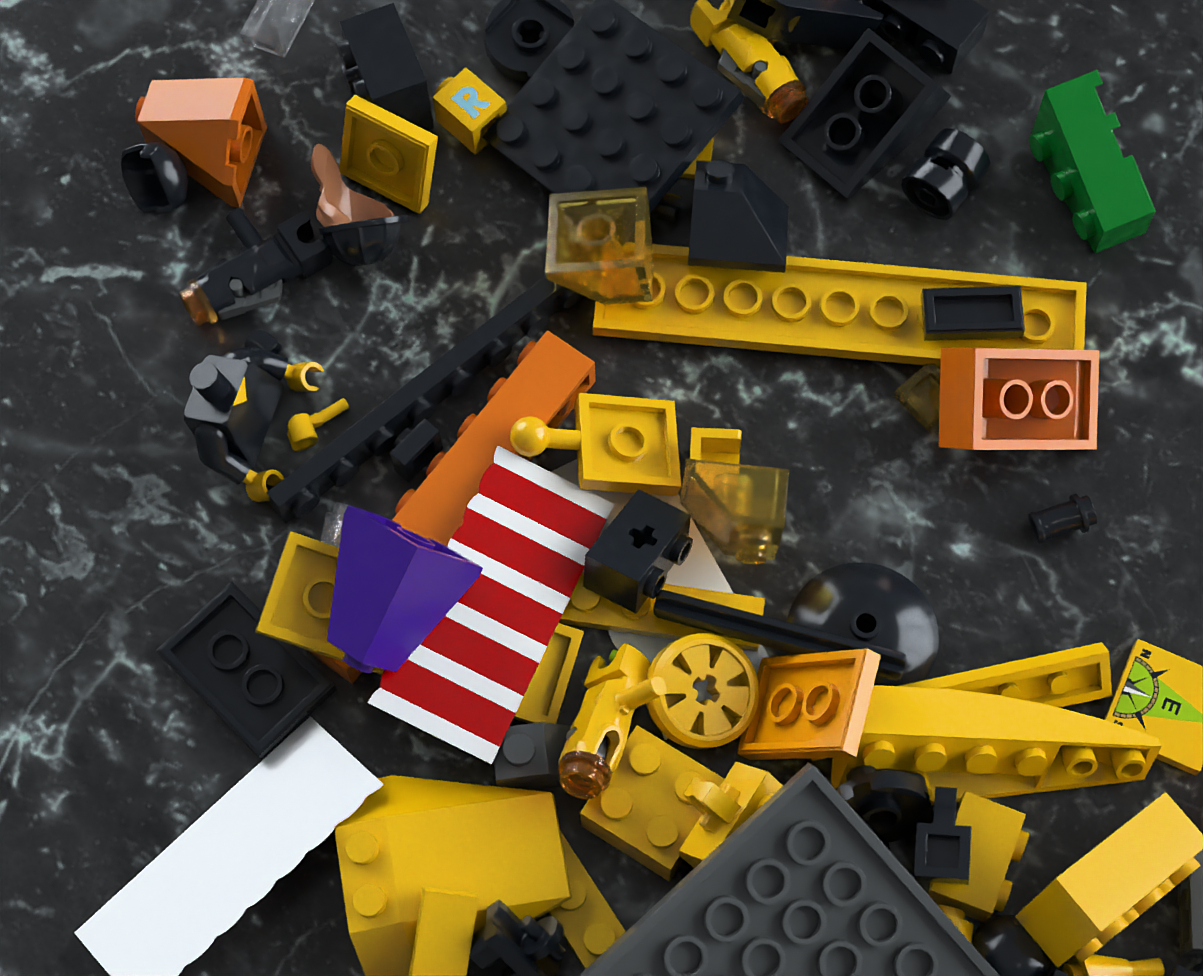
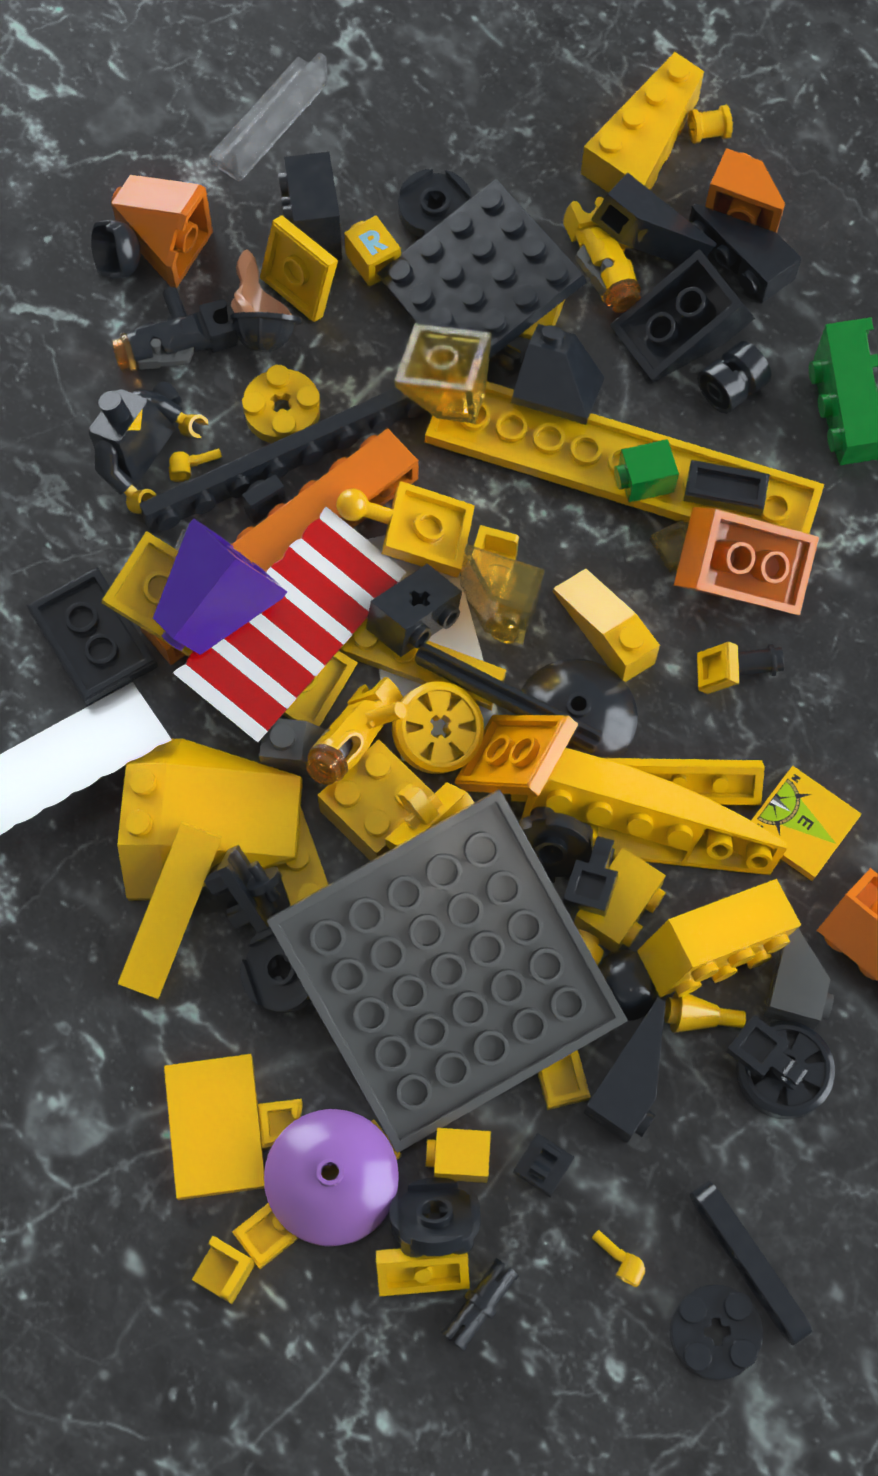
camera: 10 degrees right, 0 degrees up
(396, 303) = (278, 385): none -> yellow plate
(872, 513) = (608, 625): none -> yellow slope
(874, 315) = (646, 471): none -> green brick
(1018, 538) = (718, 668): none -> yellow tile

